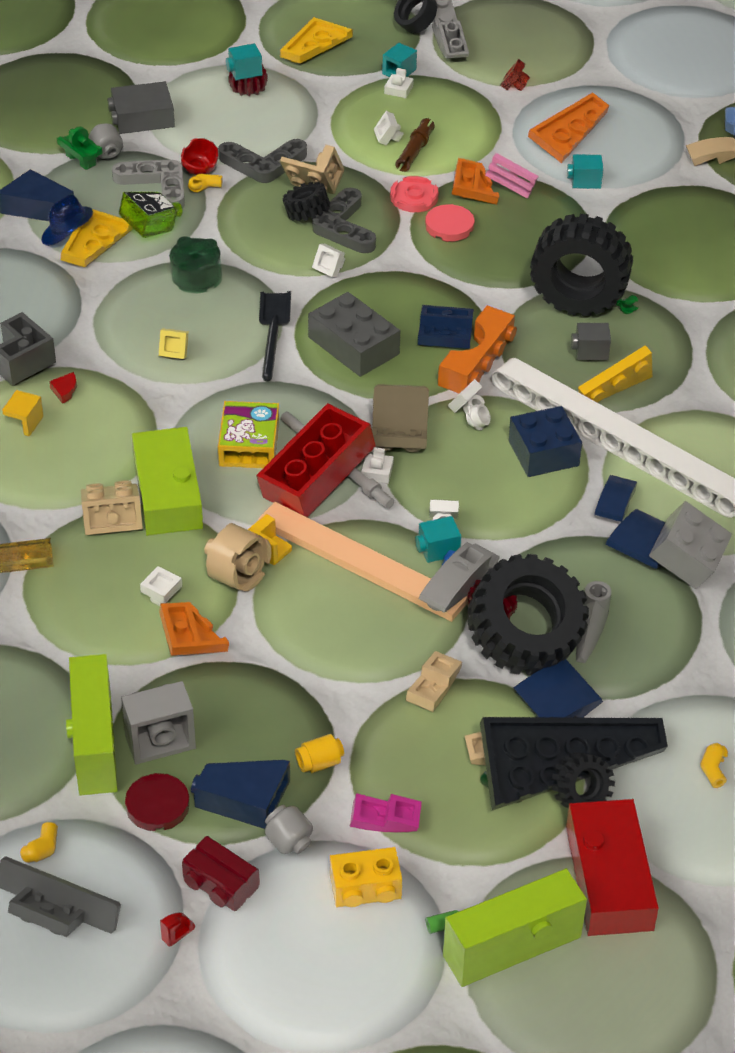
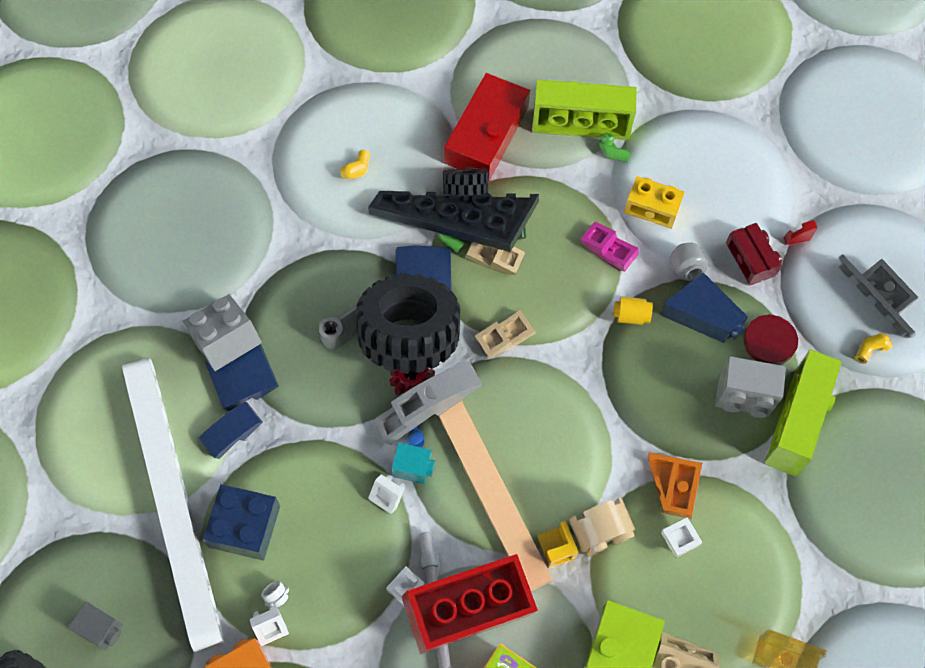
camera: 150 degrees left, 20 degrees up
(400, 417) = (359, 616): dark tan bracket -> none
(620, 376) = (104, 558): yellow wing -> none

